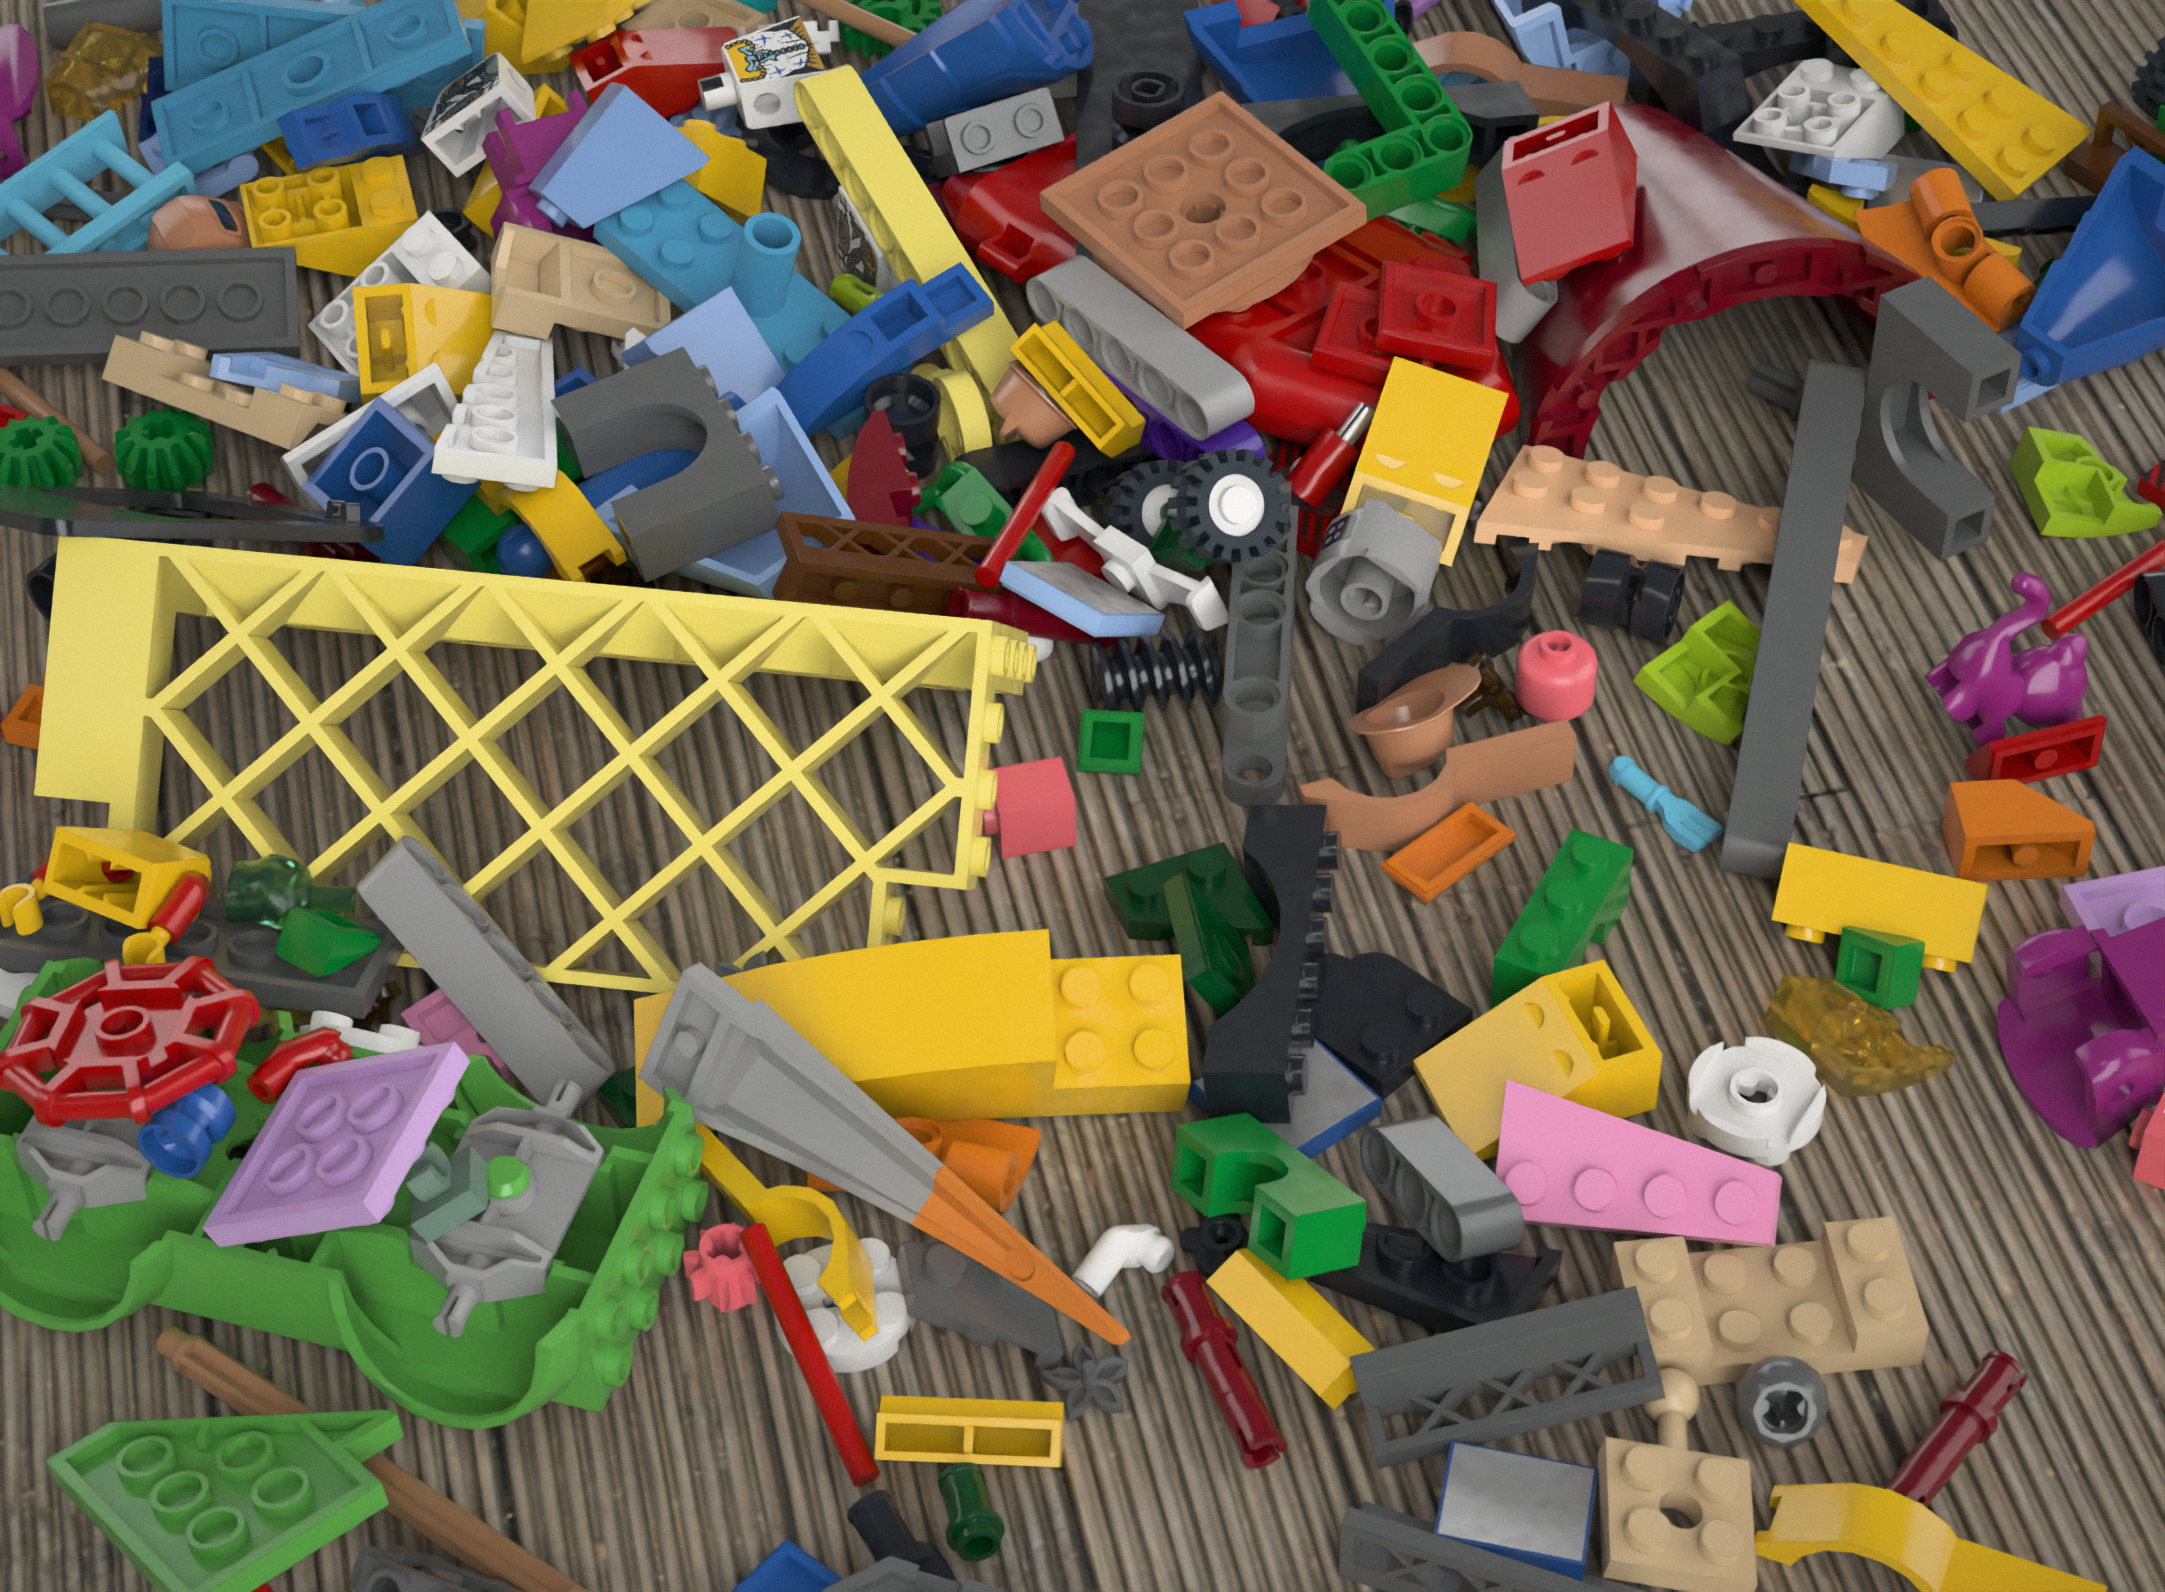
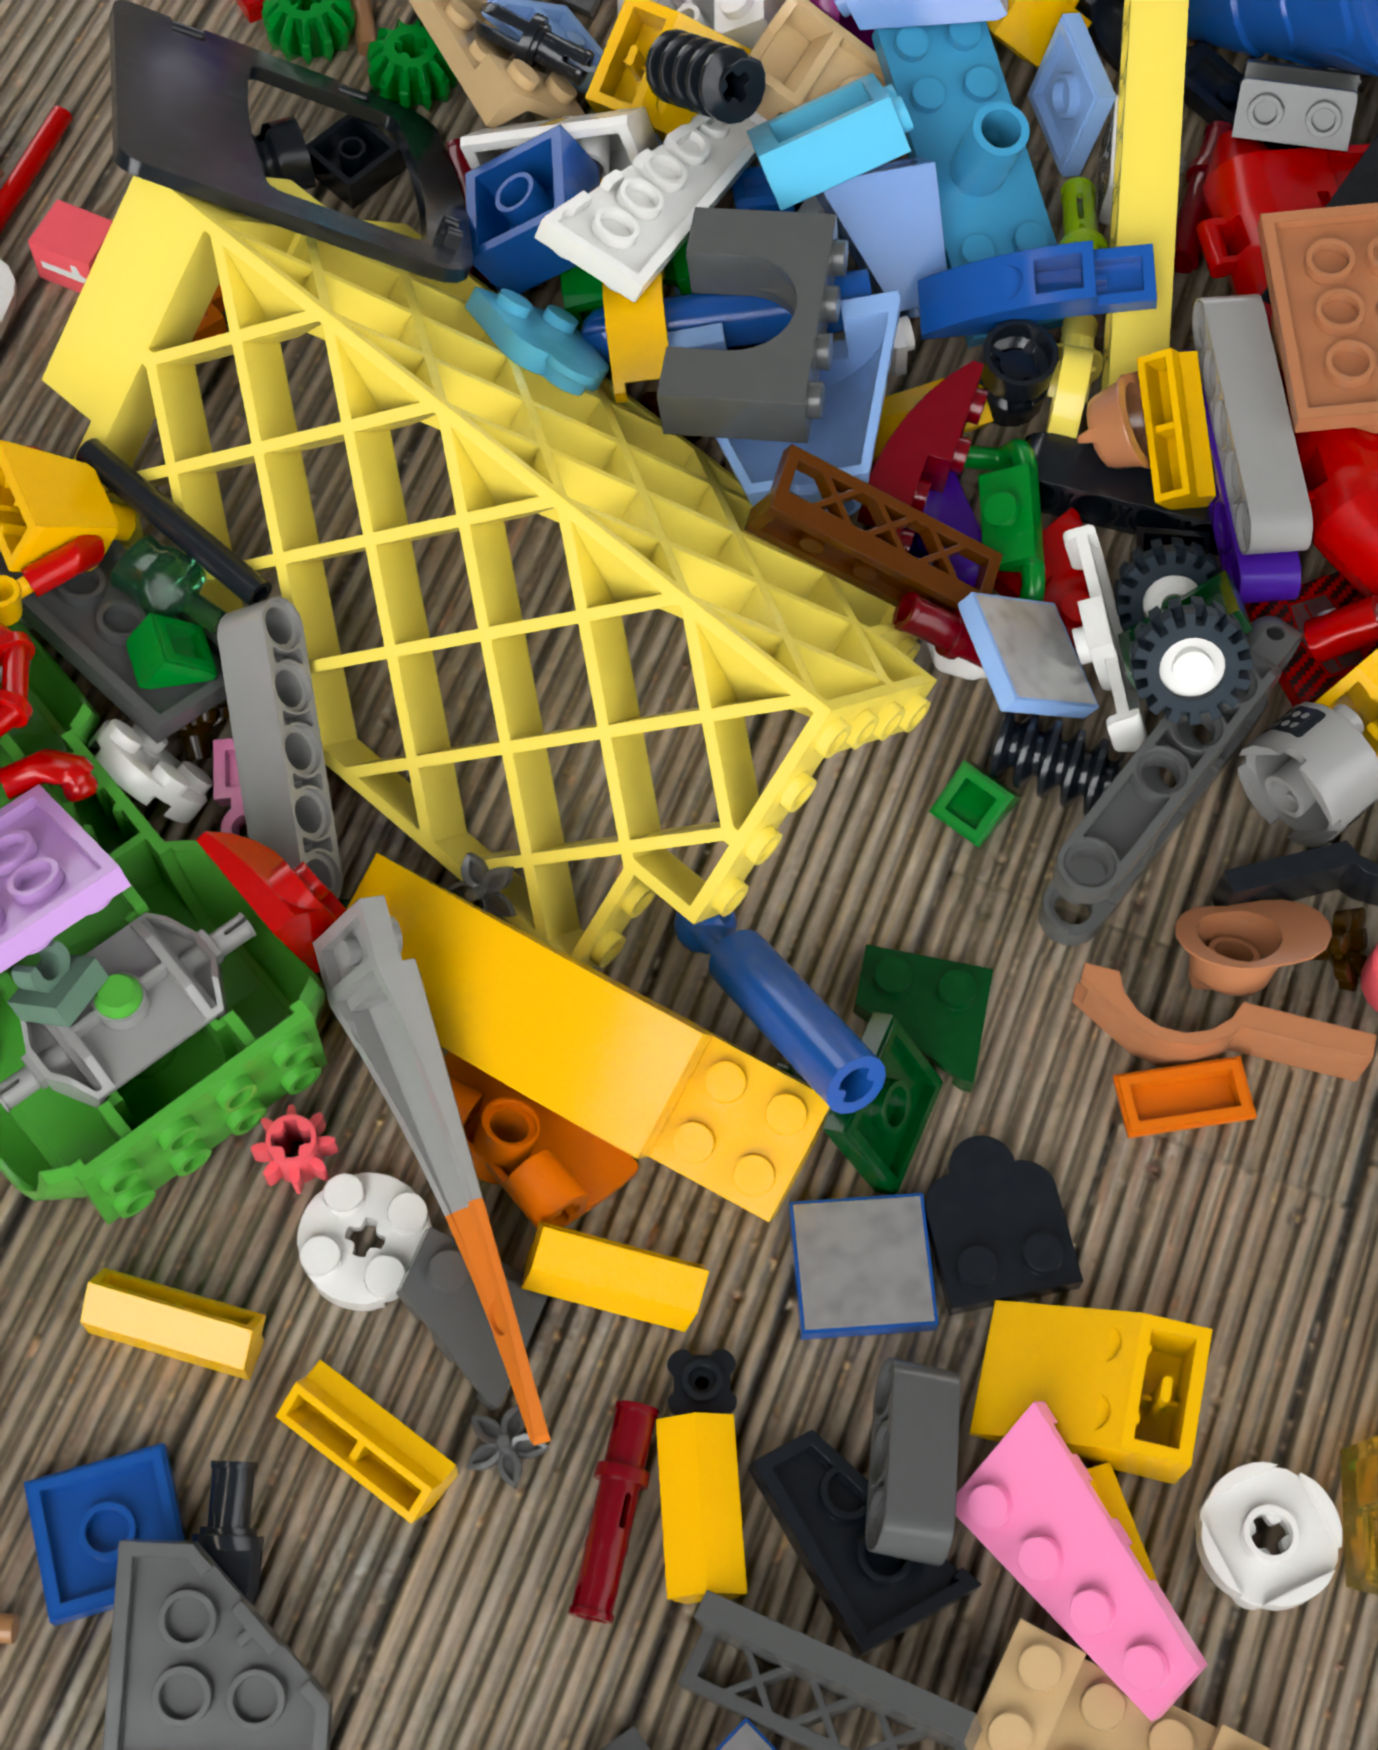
camera: 30 degrees right, 20 degrees up
(260, 839) = (175, 523): none -> black piece
(280, 366) = (537, 43): none -> black arm
(471, 558) = (539, 339): none -> medium azure plate
(475, 314) = (705, 76): none -> black piece
(593, 1047) = (285, 898): none -> red slope
(625, 310) = (831, 139): none -> medium azure window
(725, 1453) = (173, 1323): none -> yellow piece
(794, 1214) = (348, 1109): yellow piece -> none
(804, 197) = (1071, 94): none -> light blue tile
(809, 1355) = (290, 1281): red bar -> none
(973, 1526) = (317, 1515): dark green pin -> none
(1025, 514) = (1036, 540): red bar -> none
(1032, 808) = (850, 834): coral brick -> none
(1090, 1195) = (614, 1277): none -> yellow piece
(1091, 920) = (787, 1012): none -> blue piece
(1123, 1248) = (614, 1333): white arm -> none
(1257, 1046) = (852, 1220): black arch -> none
(1299, 1212) = (759, 1434): green arch -> none
(1570, 907) = (1219, 1246): green arch -> none

